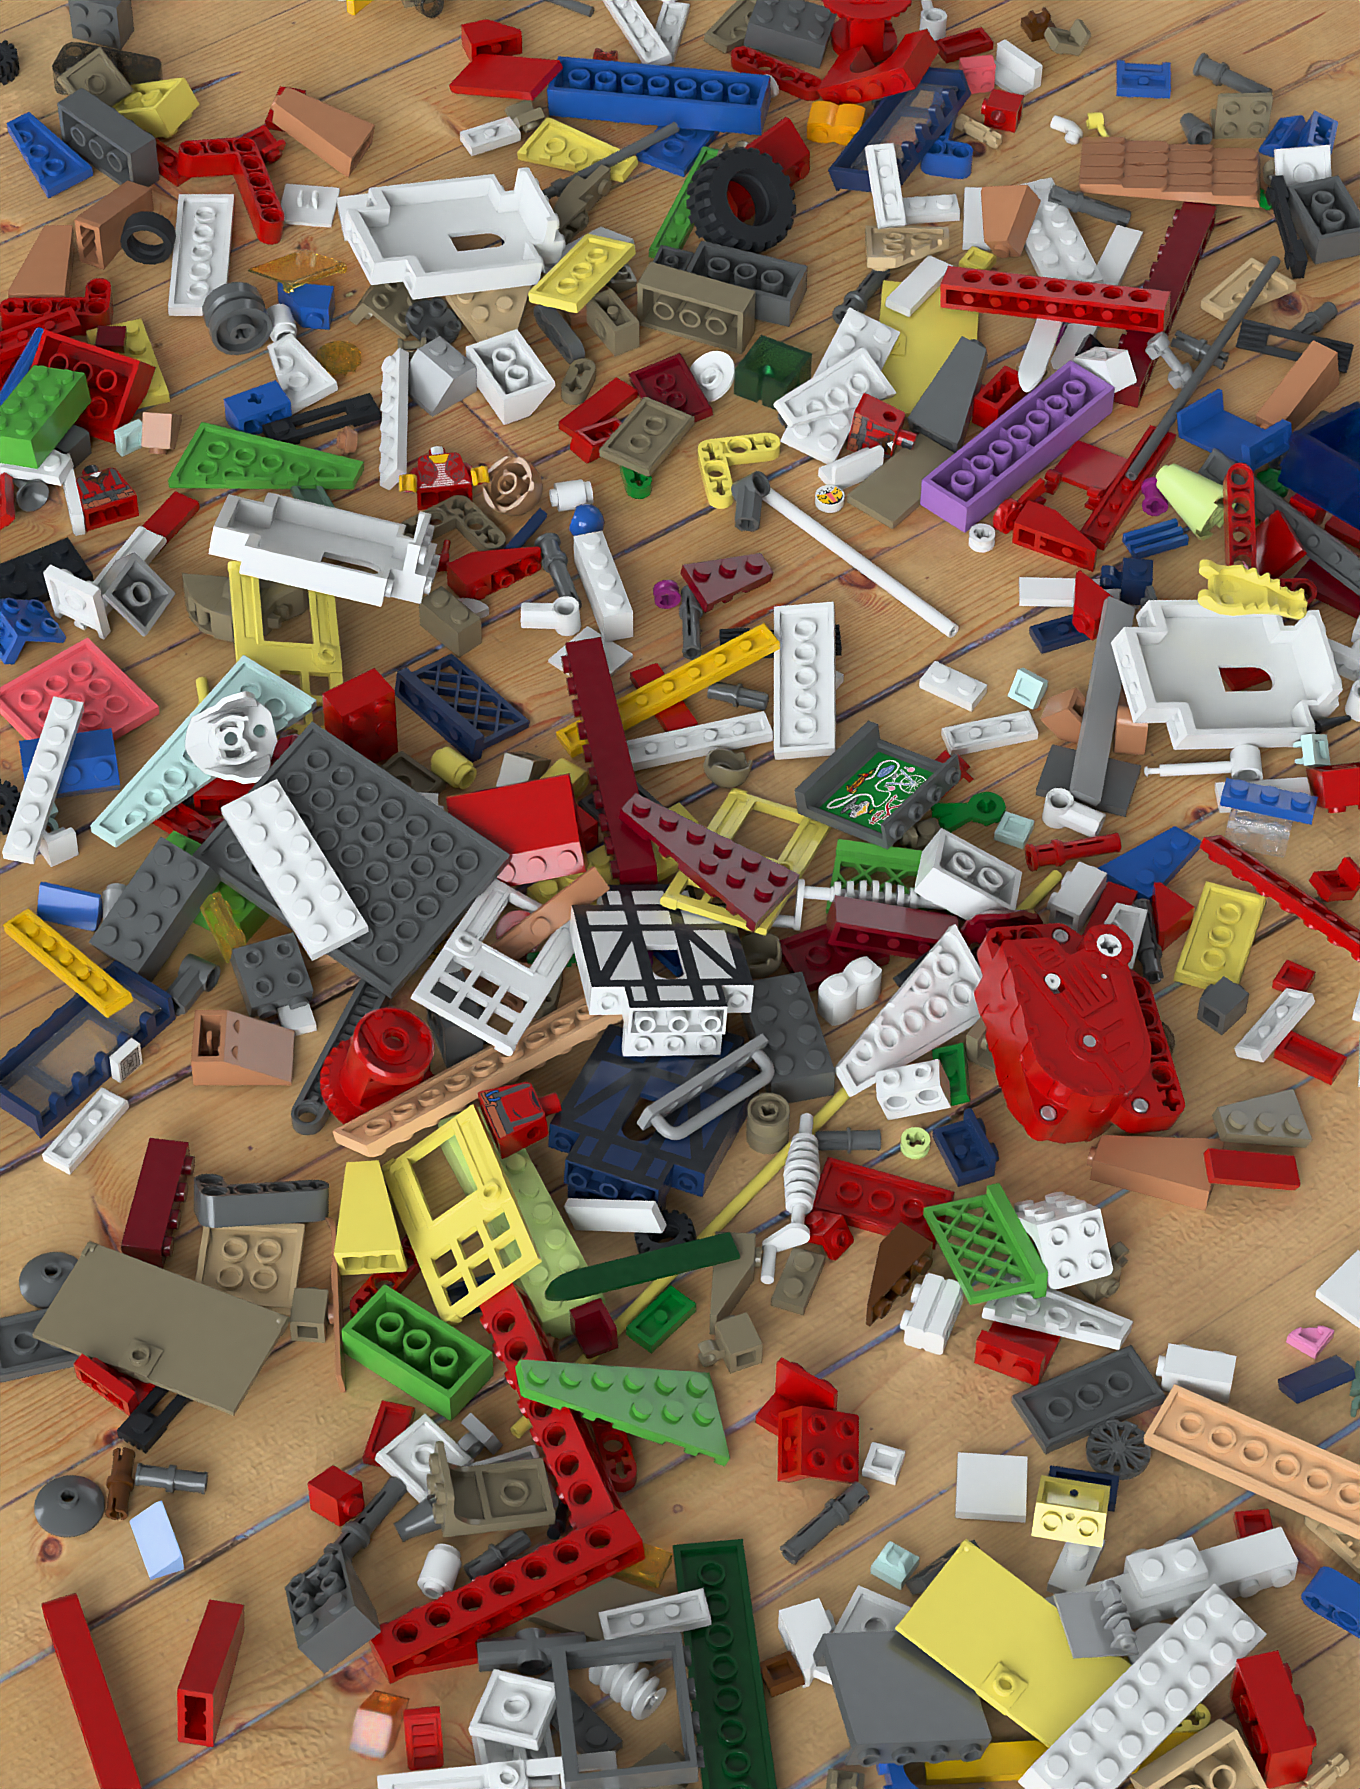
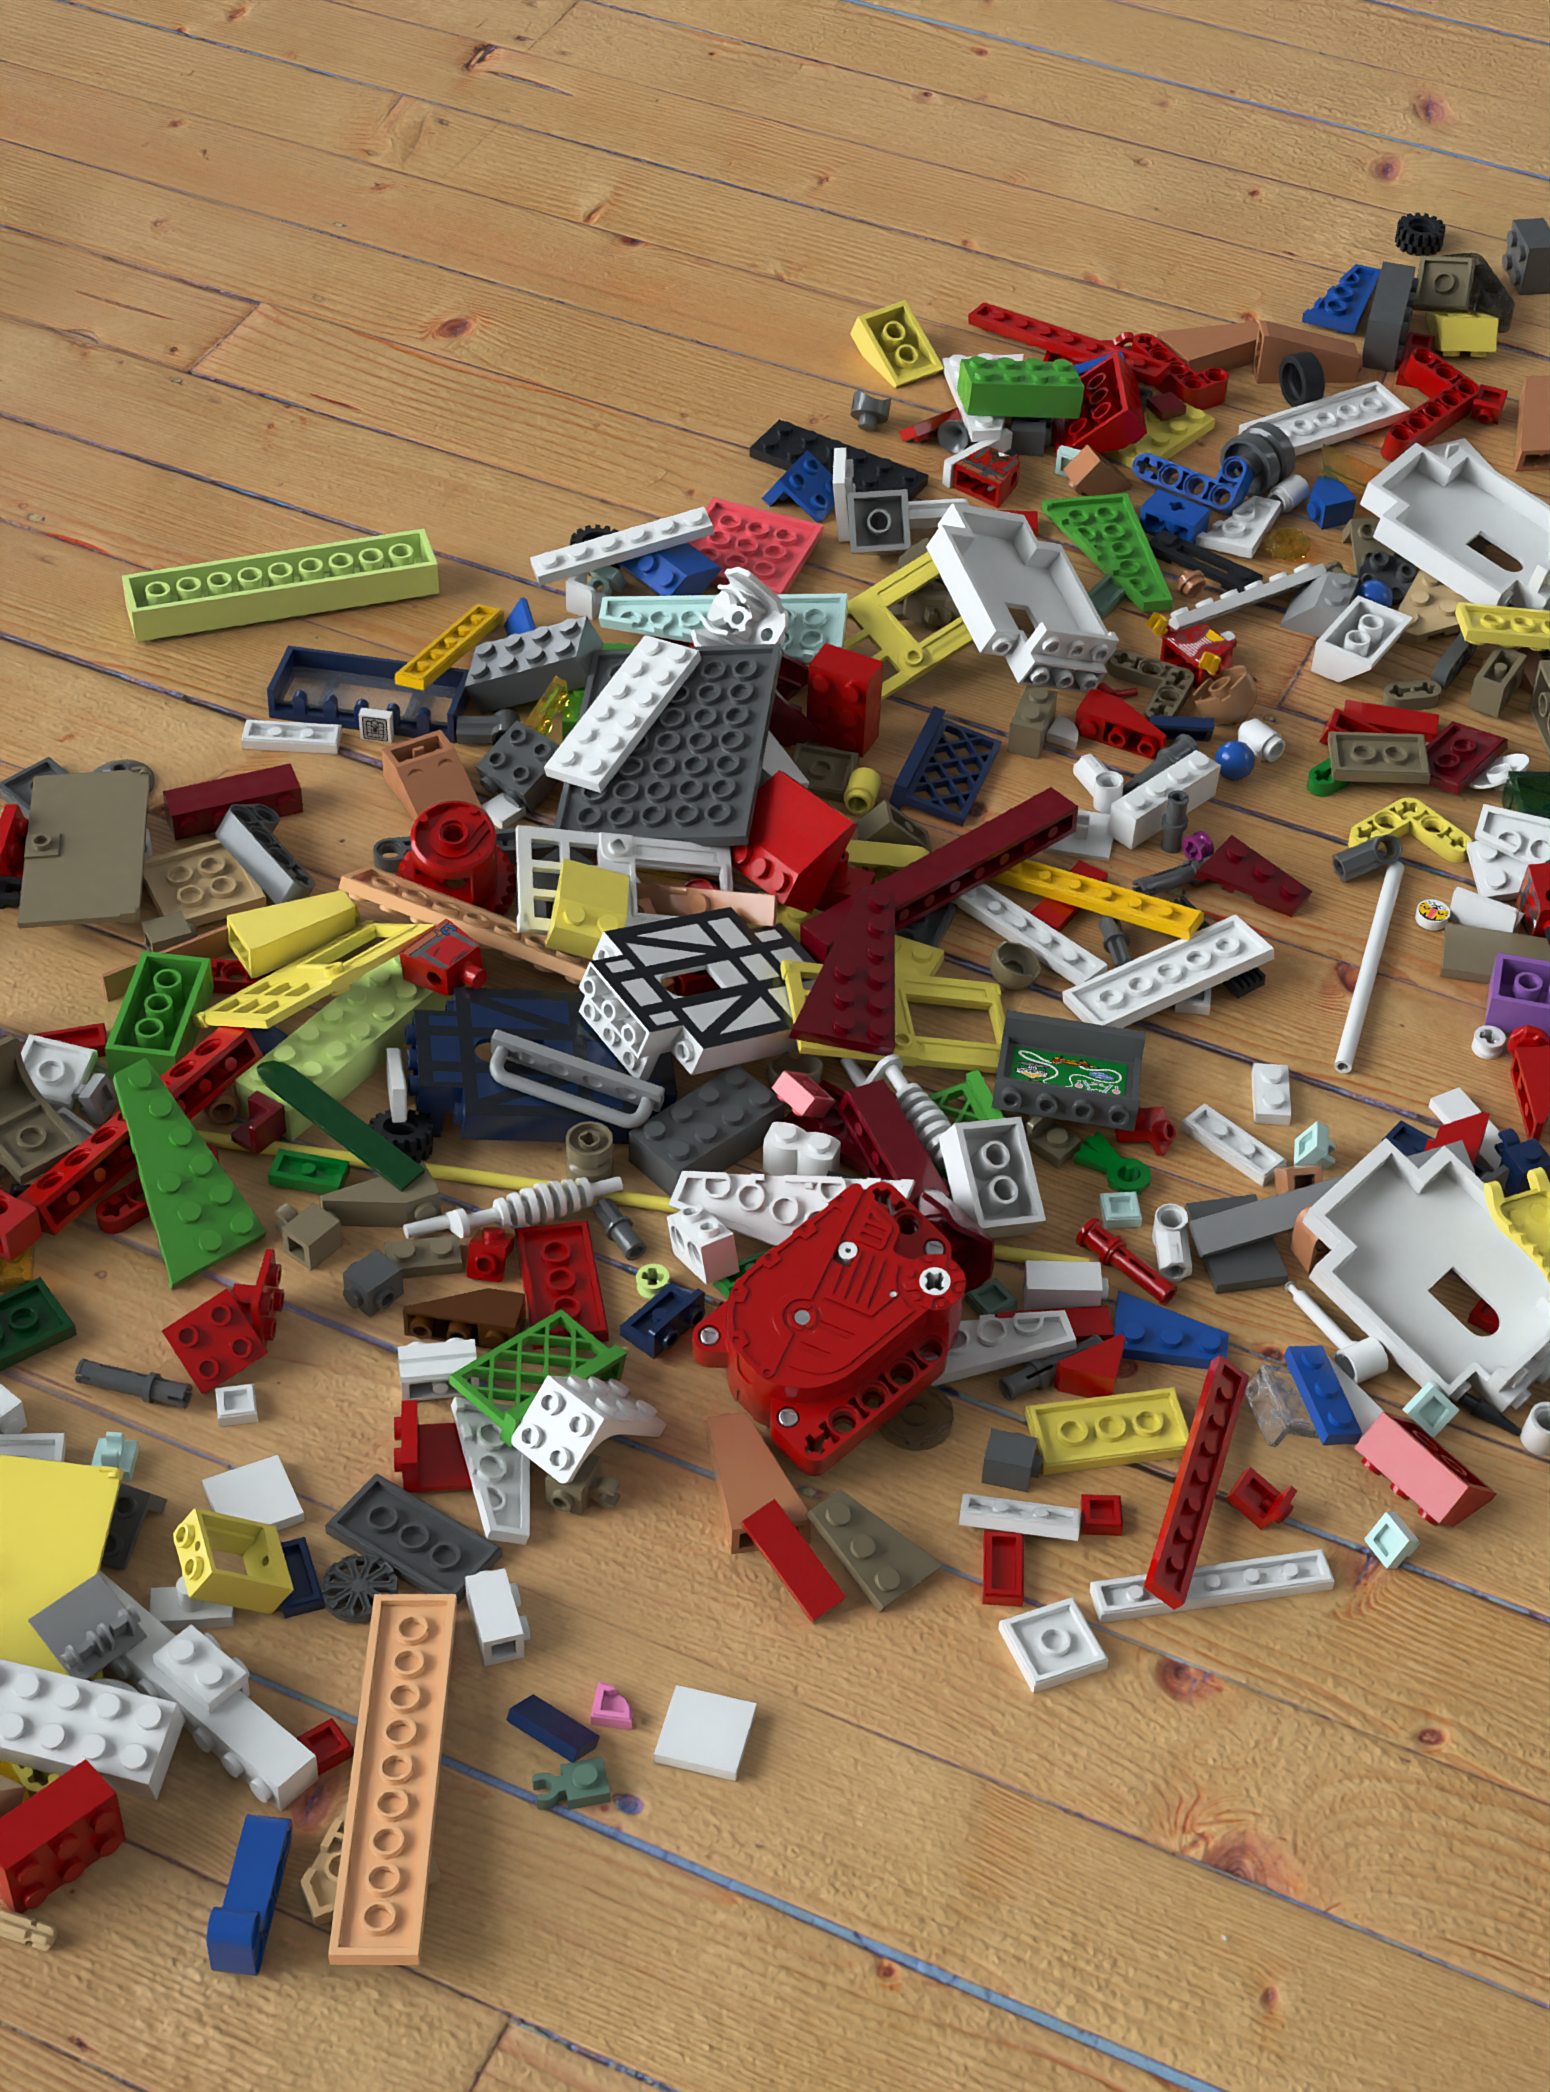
camera: 60 degrees right, 5 degrees down
(221, 374) = (1189, 479): none -> blue beam
(457, 336) = (1376, 591): none -> blue piece
(526, 994) = (586, 906): none -> light yellow slope
(642, 591) = (1174, 821): none -> dark grey pin
(804, 955) = (803, 1094): none -> coral piece
(815, 1321) = (372, 1283): none -> dark grey brick

